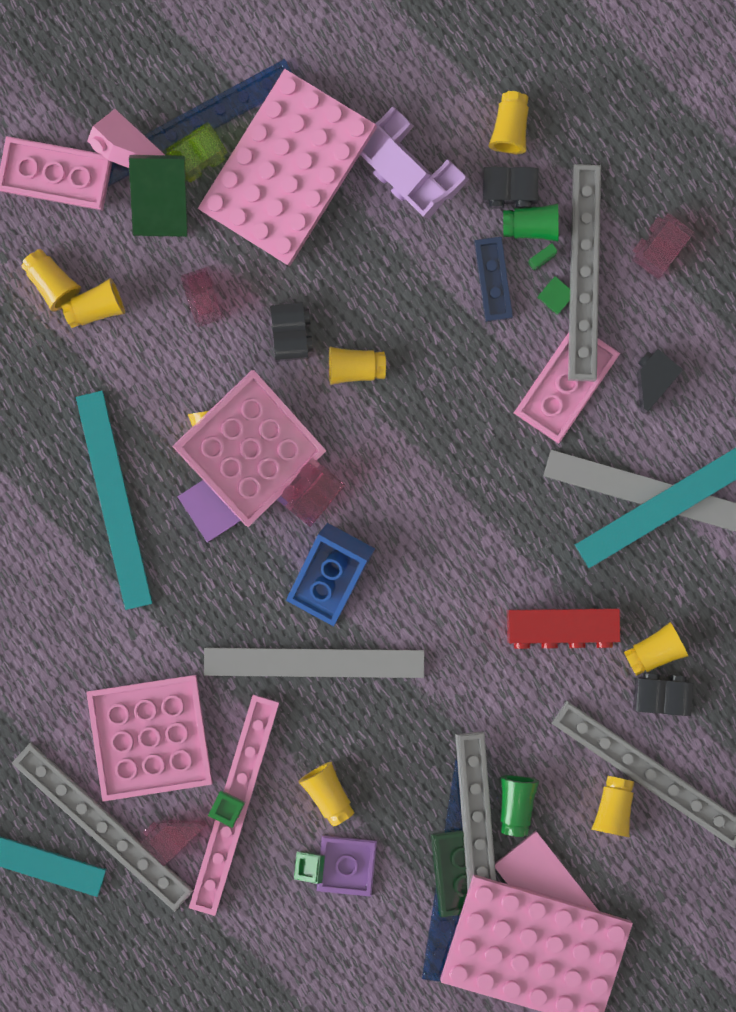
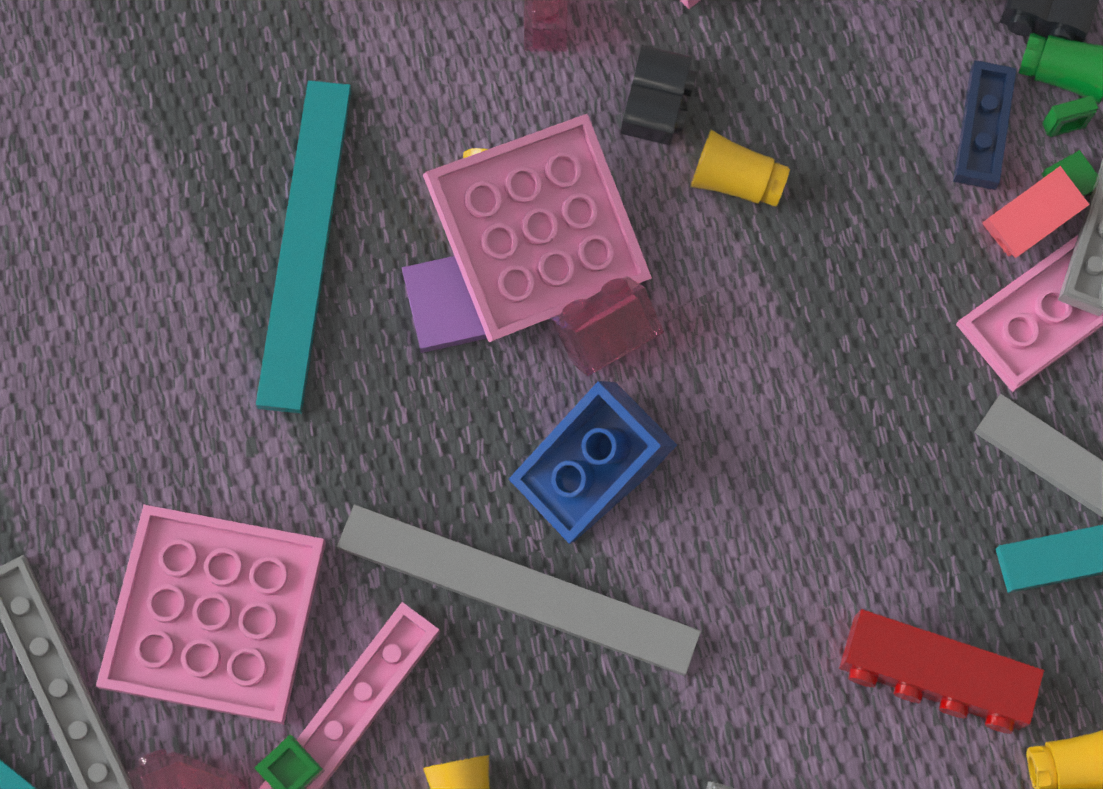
camera: 20 degrees right, 15 degrees down
(539, 330) = (1036, 213): none -> coral hinge

